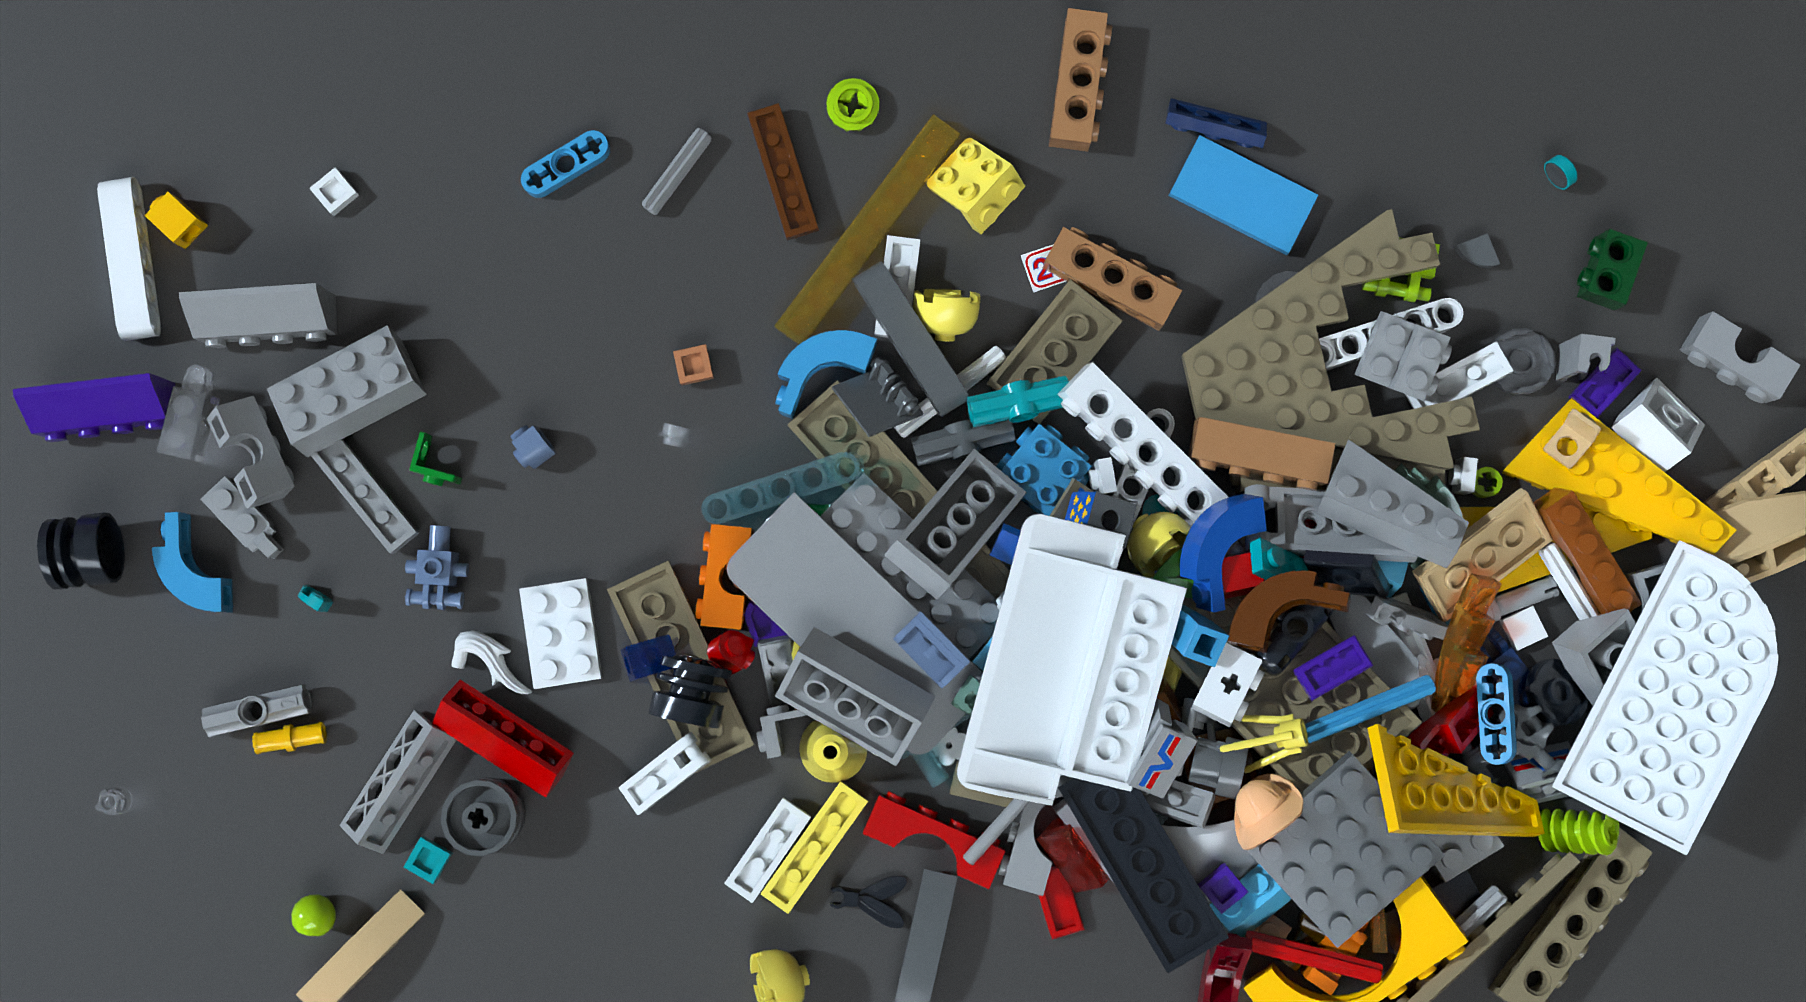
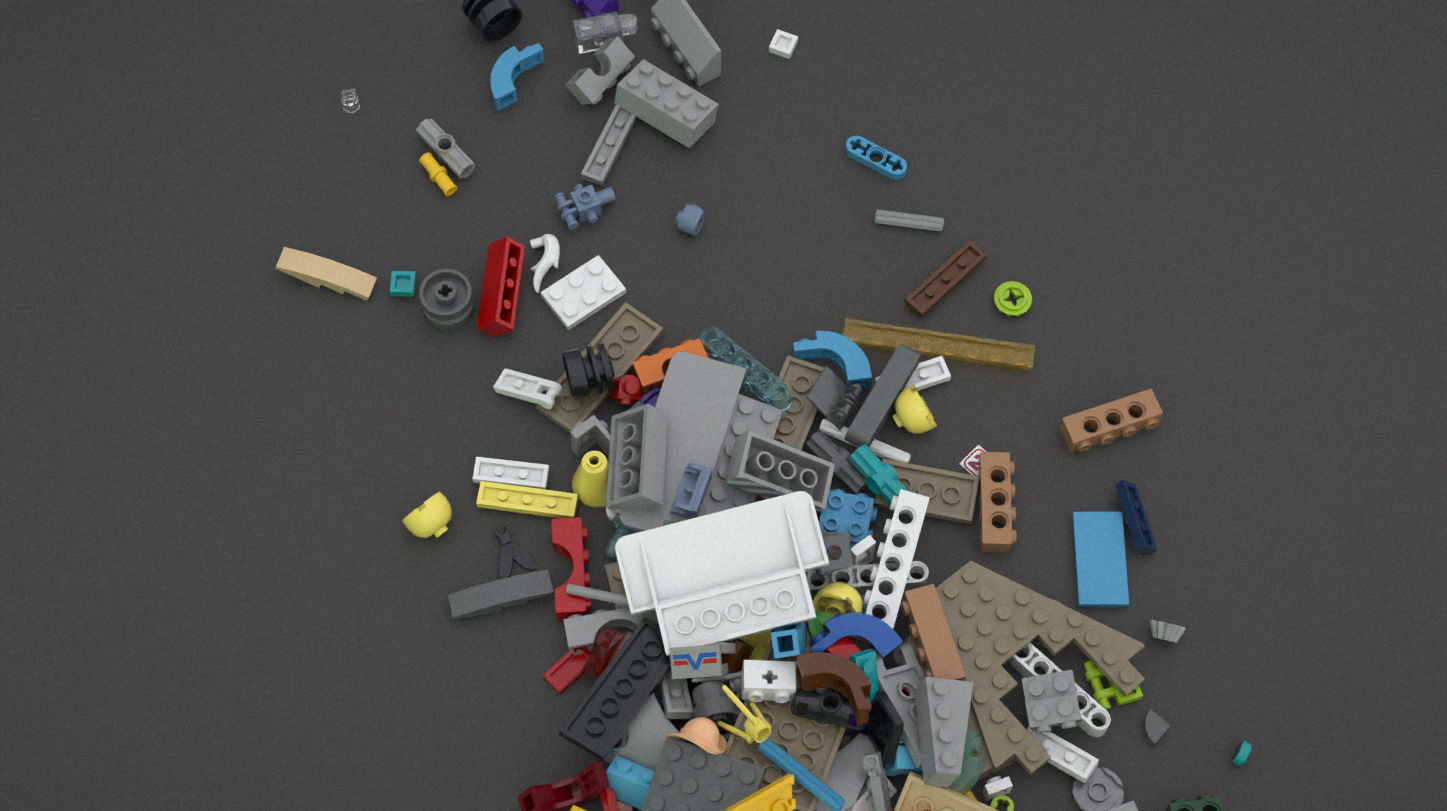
camera: 60 degrees right, 20 degrees down
(247, 525) = (556, 92): light grey hinge -> none
(313, 915) = (336, 236): lime piece -> none
(315, 599) = (530, 149): teal tile -> none
(399, 786) = (441, 246): light grey fence -> none
(419, 459) = (643, 165): green bracket -> none
(644, 657) = (592, 337): clear blue bracket -> none
(674, 435) = (743, 296): clear plate -> none
(693, 364) = (794, 285): nougat plate -> none
(976, 183) = (1006, 394): light yellow bracket -> none
(1222, 888) = (633, 751): dark purple plate -> none
(1333, 668) = (816, 741): dark purple plate -> none
(1375, 170) = (1166, 631): none -> light grey piece

